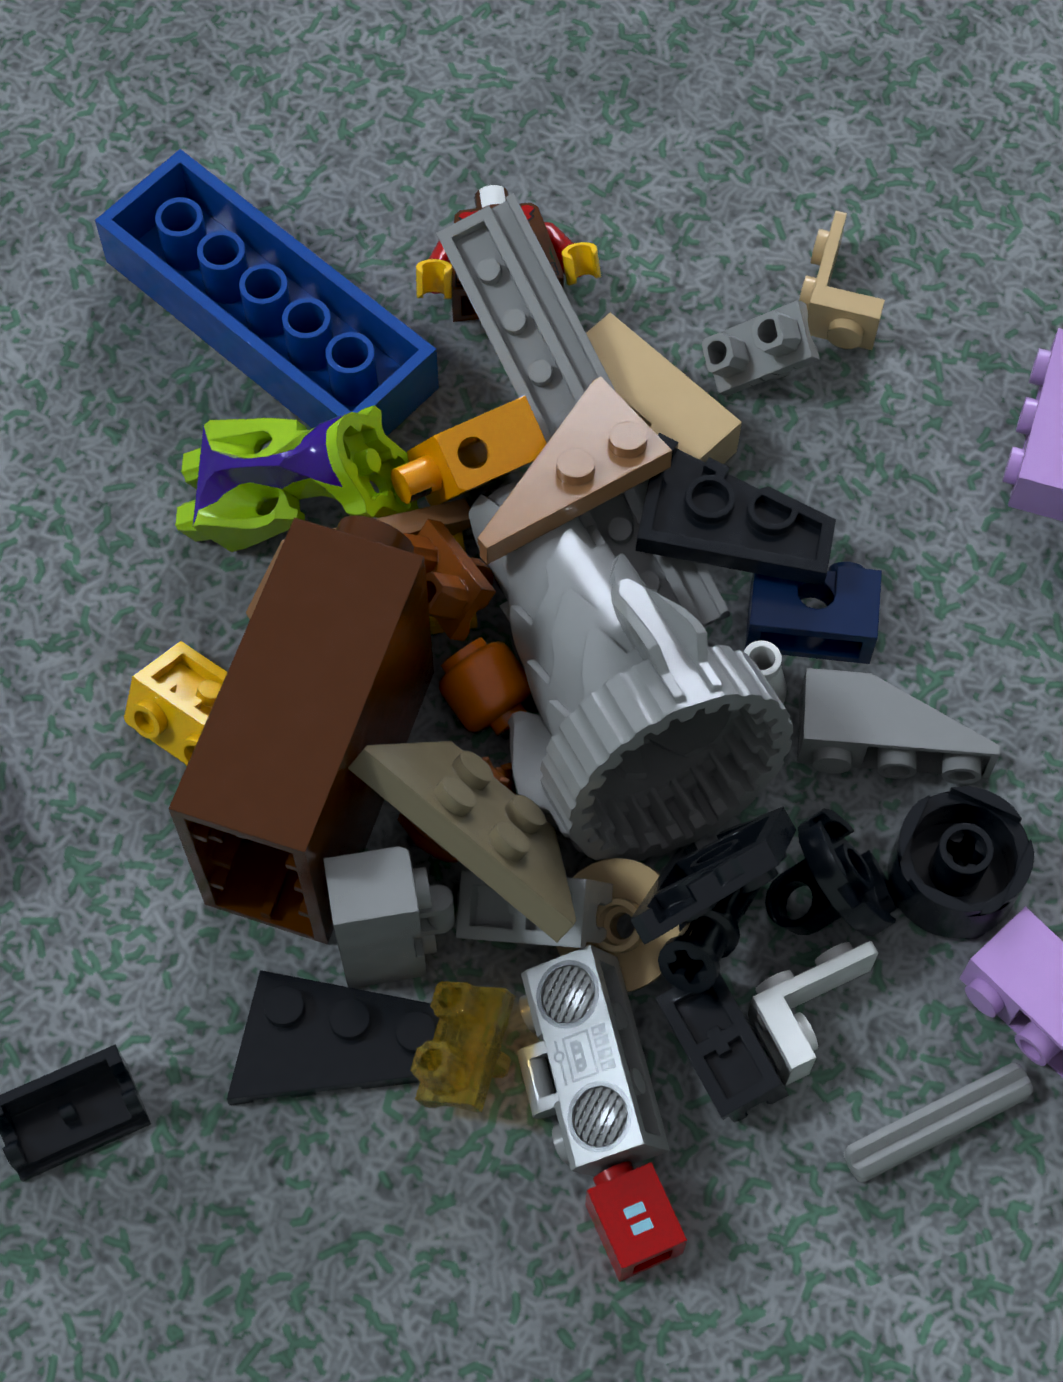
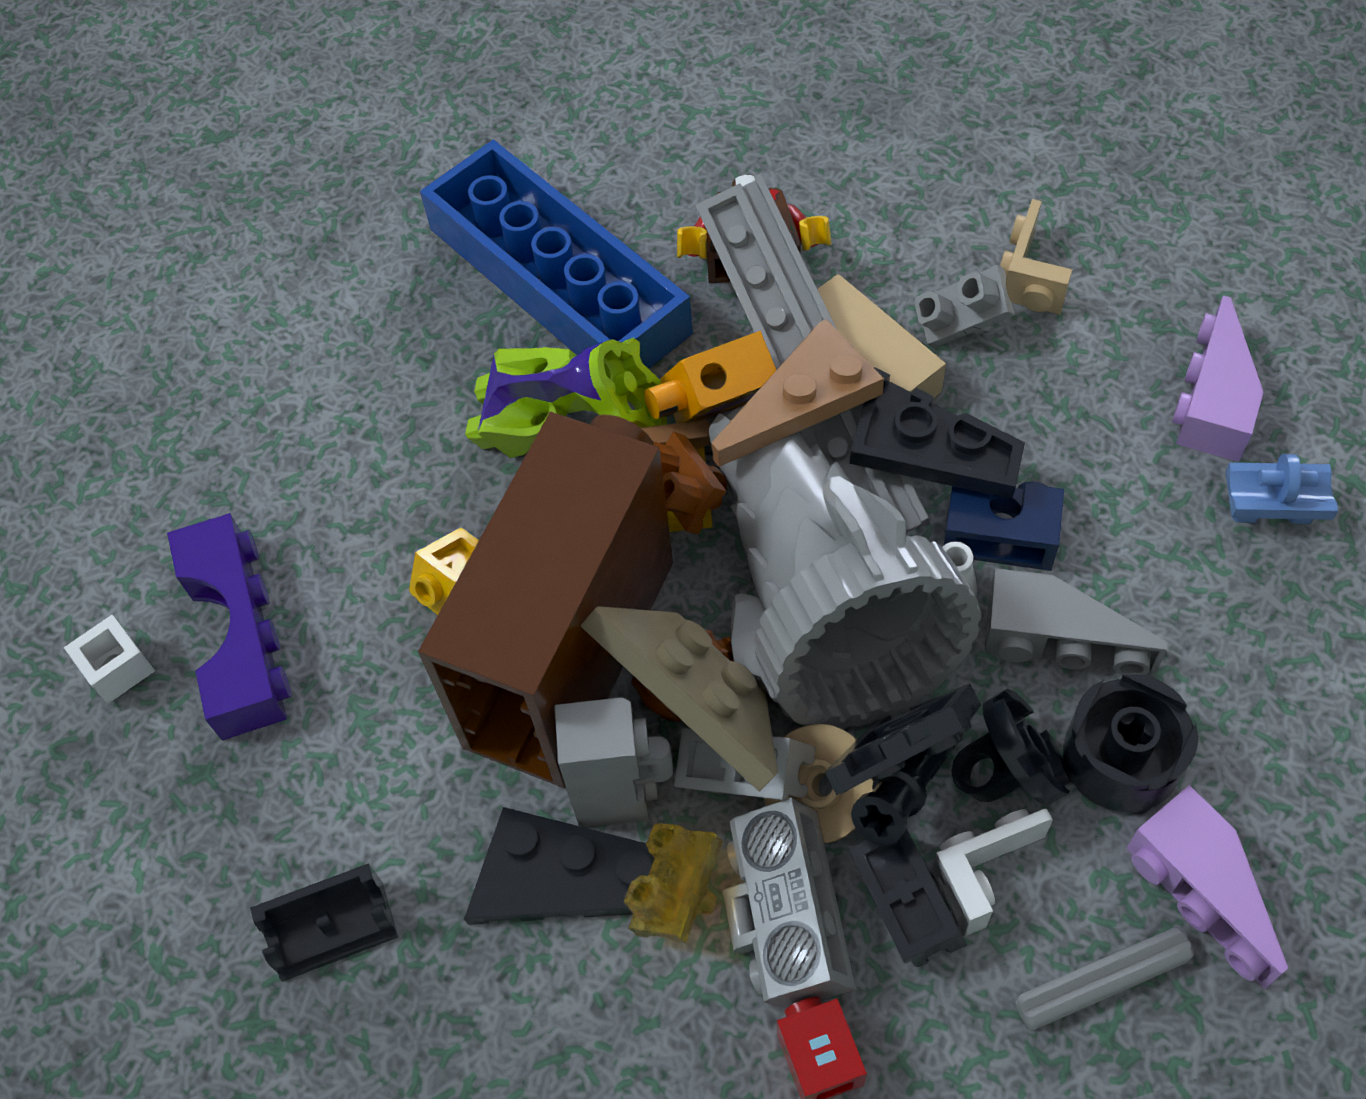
camera: 10 degrees right, 5 degrees down
(484, 685) = (713, 573): orange head -> none

